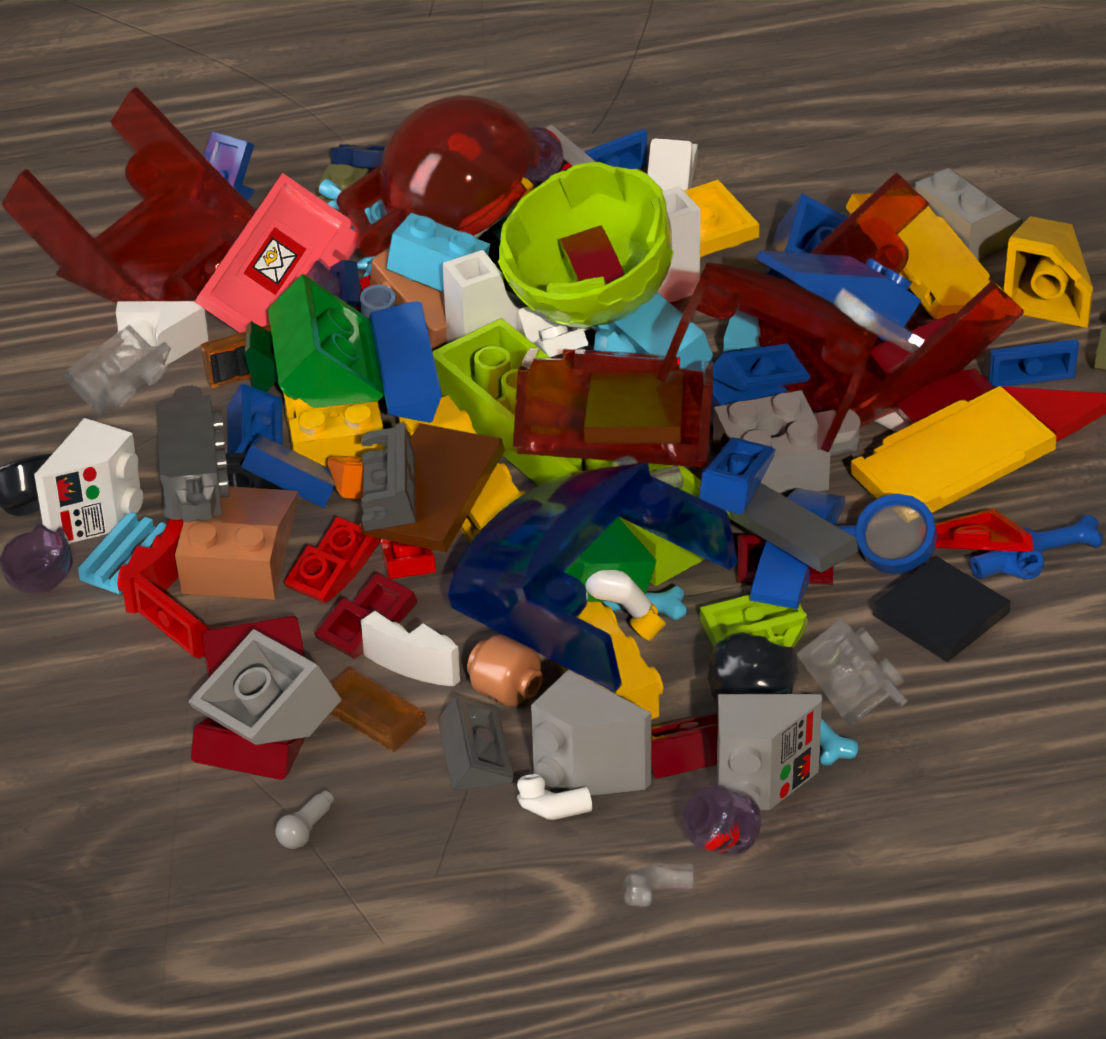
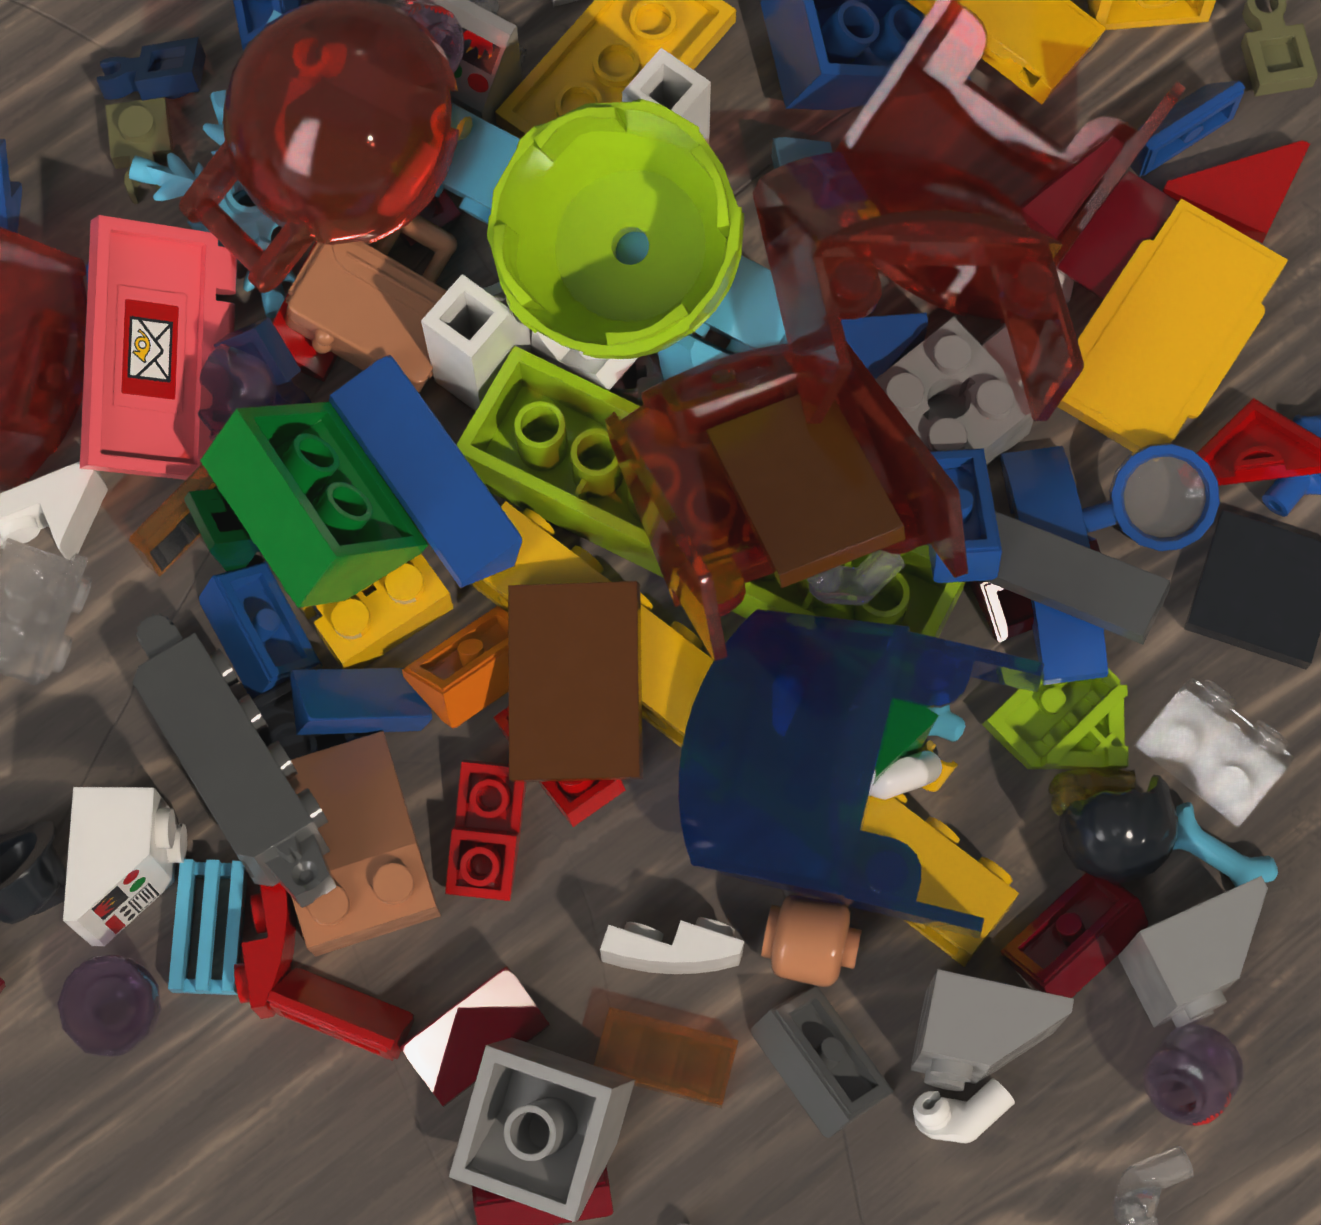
camera: 25 degrees left, 30 degrees up
(343, 625) = (579, 907): dark red slope -> none
(376, 298) = (324, 361): sand blue hose -> none
(388, 479) = (522, 710): dark grey hinge -> none
(424, 245) = (384, 278): medium azure brick -> none
(592, 255) = (626, 245): dark red slope -> none
(760, 368) = (902, 297): blue slope -> none
(831, 273) = (952, 141): blue slope -> none
(878, 321) = (1053, 219): clear tile -> none

